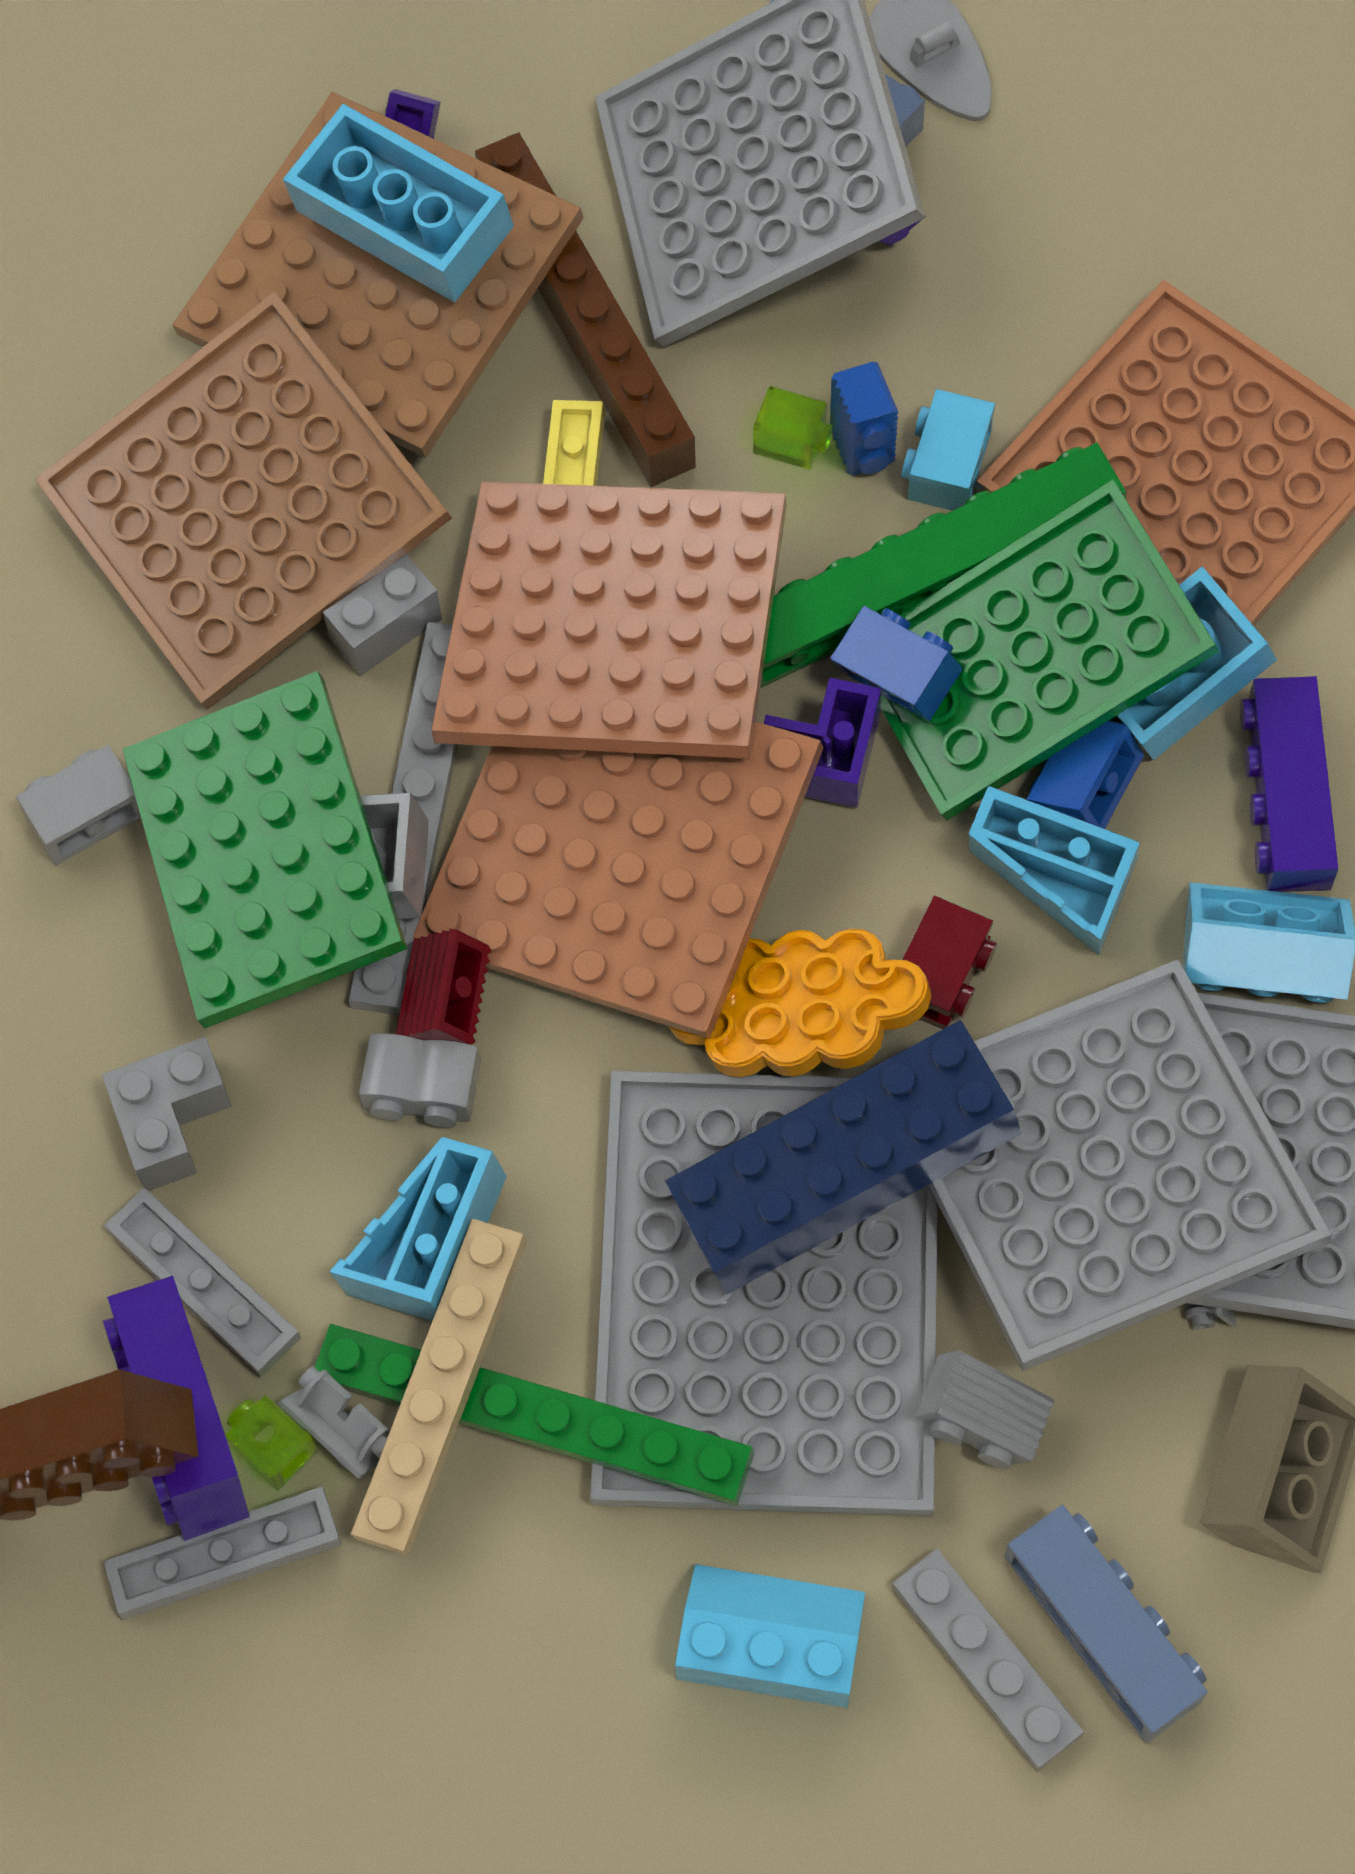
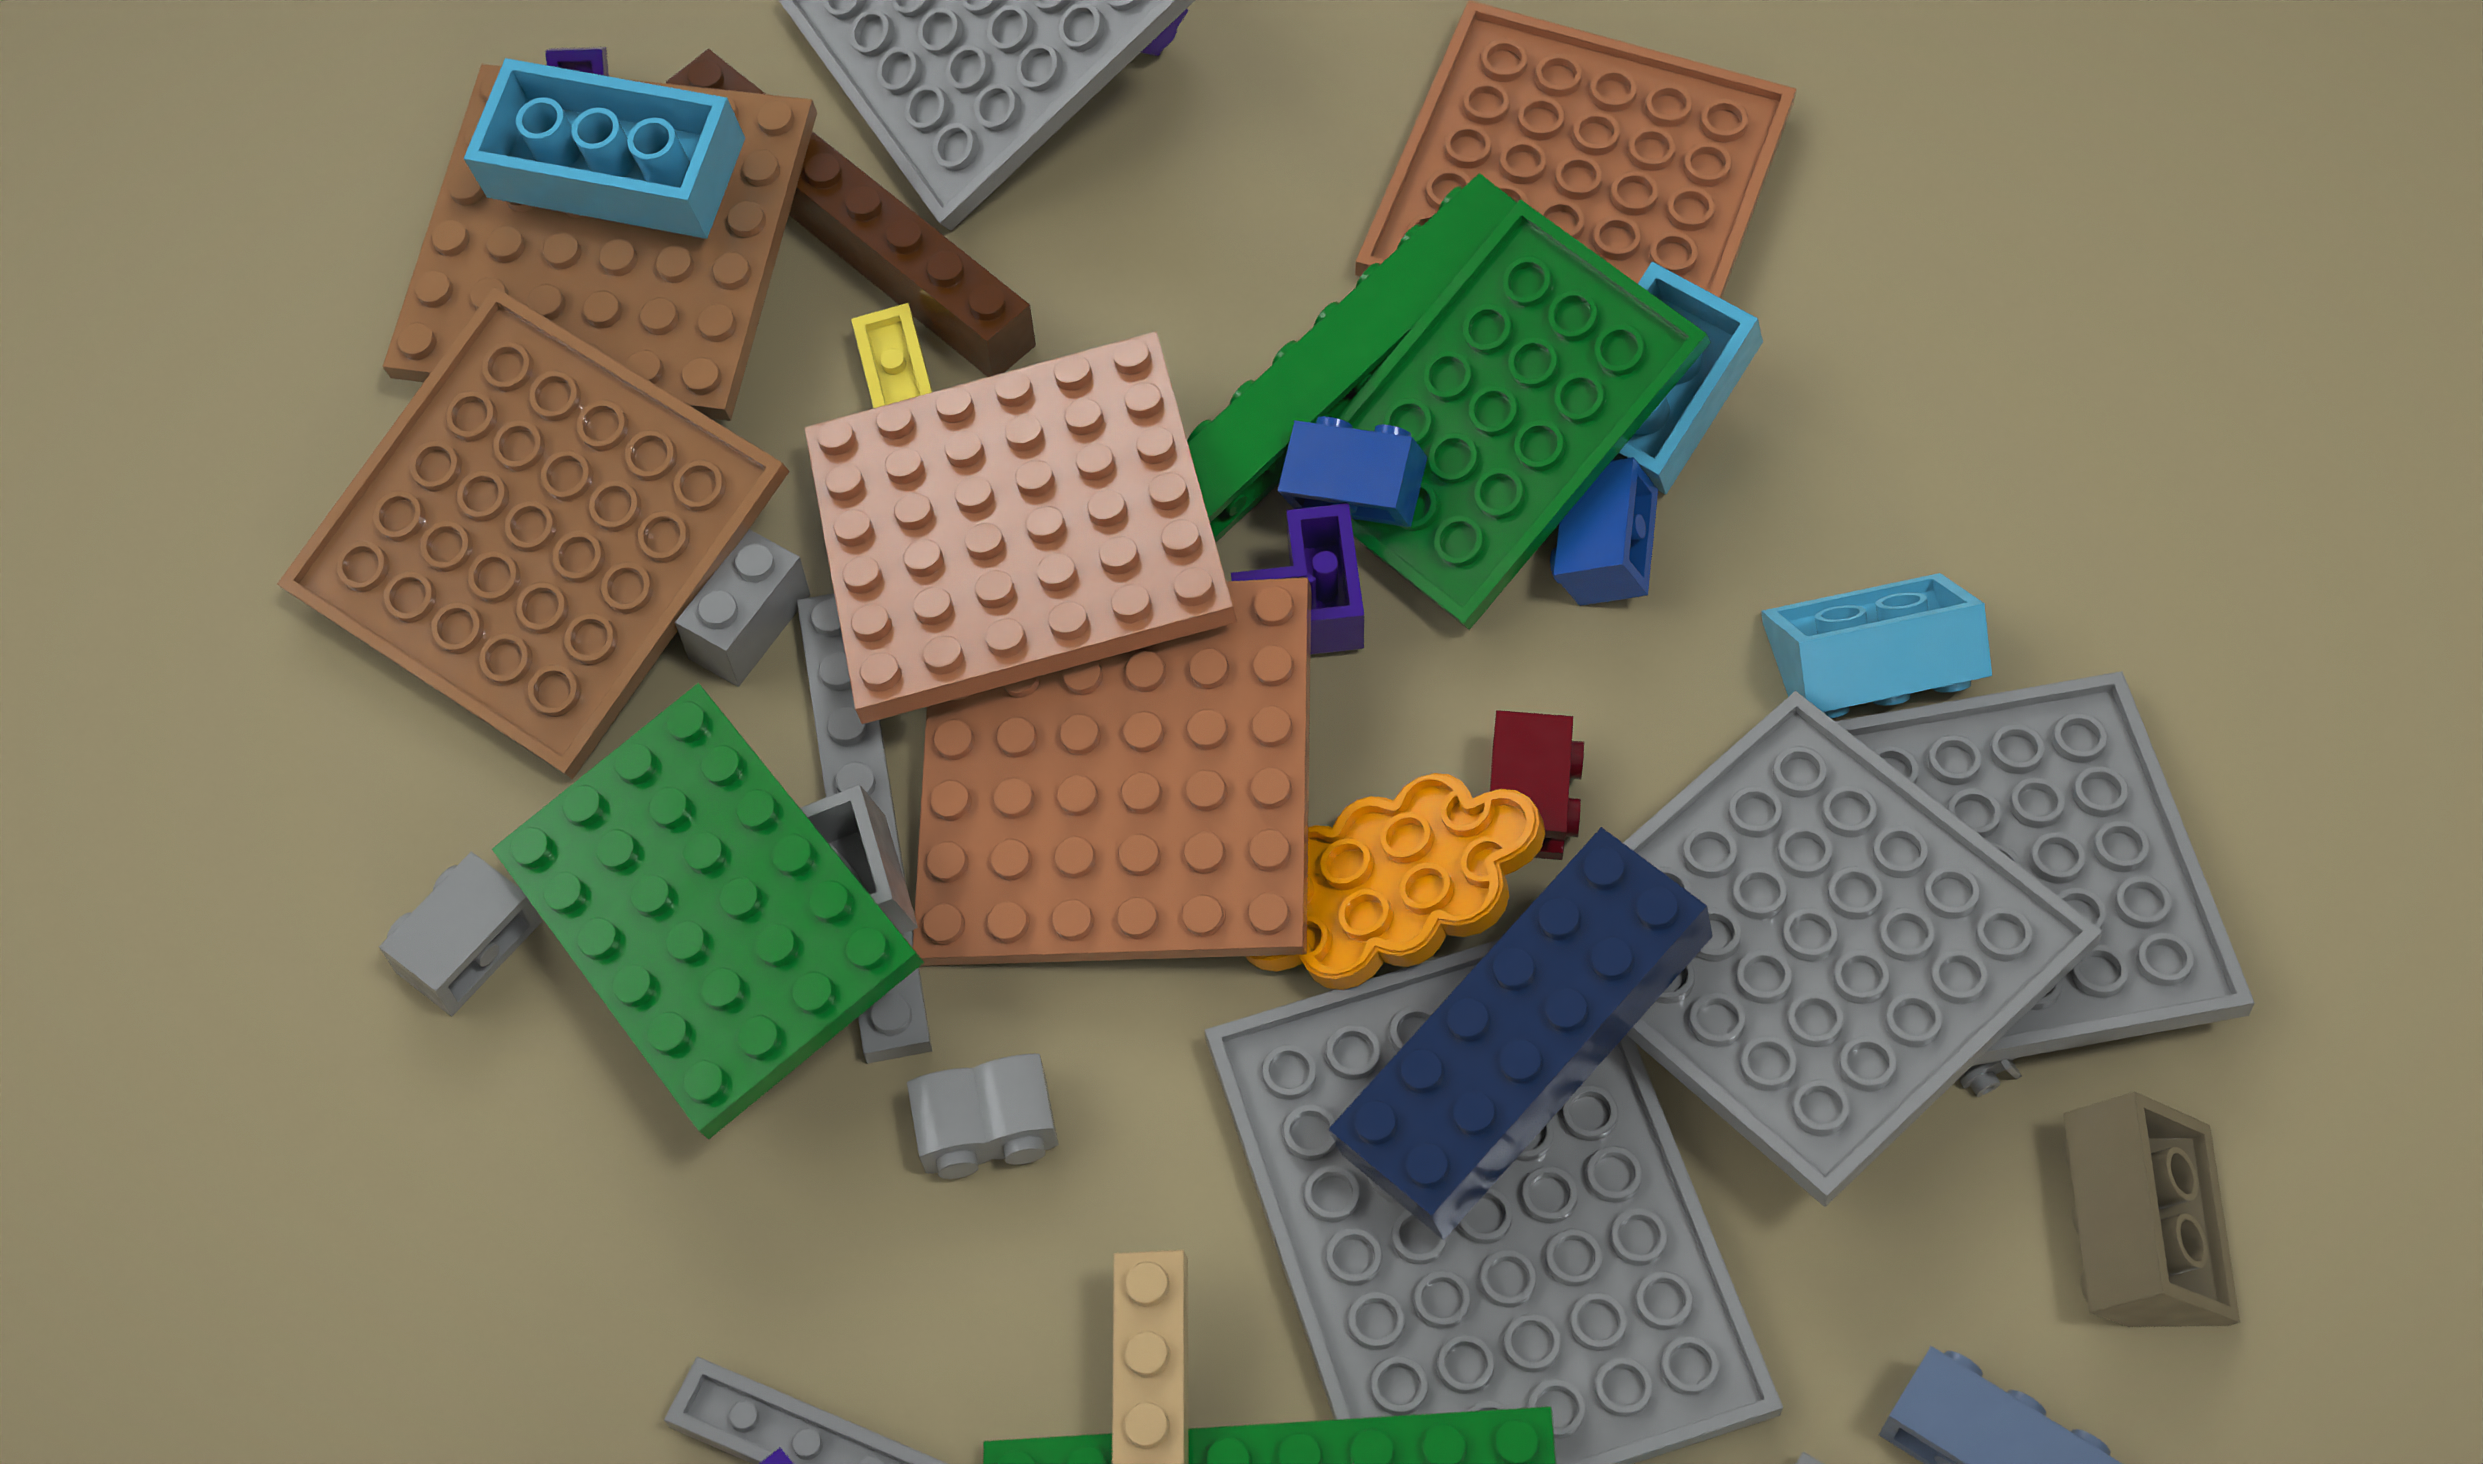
camera: 20 degrees left, 5 degrees down
(157, 1098) = (674, 1249): light grey brick -> none
(418, 1238) = (1057, 1303): medium azure wedge -> none
(444, 987) = (973, 999): dark red brick -> none
(791, 428) = (1129, 269): clear neon green brick -> none
(863, 419) = (1208, 231): blue brick -> none
(949, 451) = (1313, 239): medium azure brick -> none
(984, 1410) = (1793, 1269): light grey brick -> none
(1055, 861) = (1613, 632): medium azure wedge -> none
(1290, 784) = (1828, 471): dark purple brick -> none

